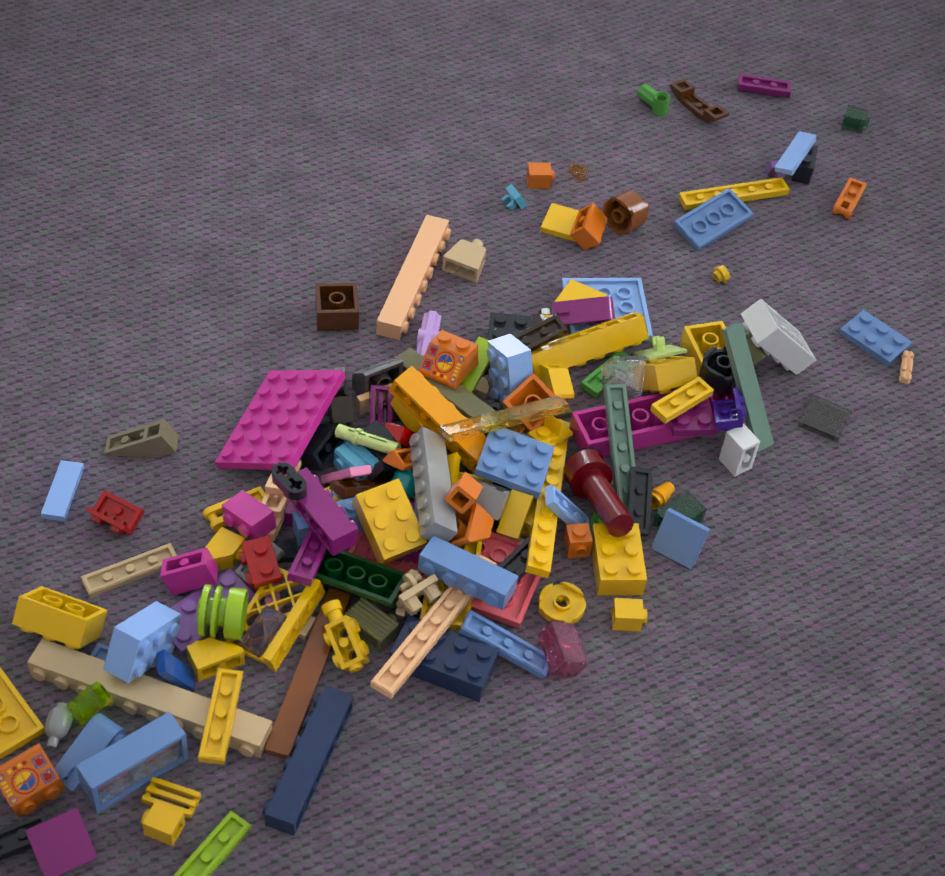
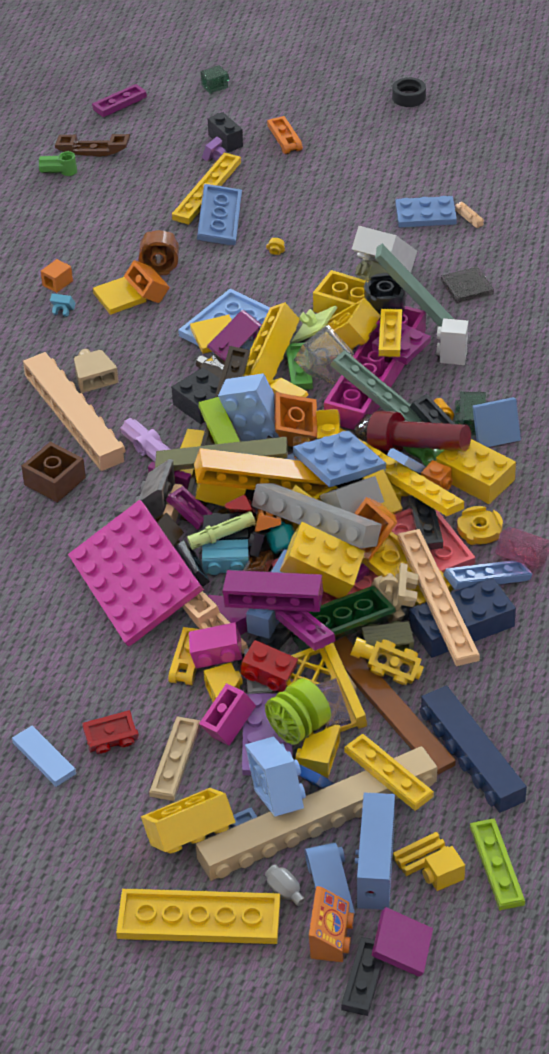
camera: 40 degrees left, 5 degrees down
(89, 702) = (291, 848): clear neon green brick -> none
(144, 441) = (53, 674): dark tan slope -> none
(293, 478) = (233, 585): black beam -> none
(346, 474) = (242, 561): bright pink tile -> none
(449, 359) = (205, 429): orange slope -> none
(463, 493) = (352, 496): orange brick -> none
(468, 572) = (418, 545): medium blue brick -> none
(503, 418) = (299, 436): clear yellow tile -> none
(578, 170) = (76, 253): clear orange tile -> none
(628, 614) = (527, 495): yellow brick -> none
(729, 412) = (427, 316): dark purple bracket -> none
(795, 153) = (218, 126): light blue tile -> none

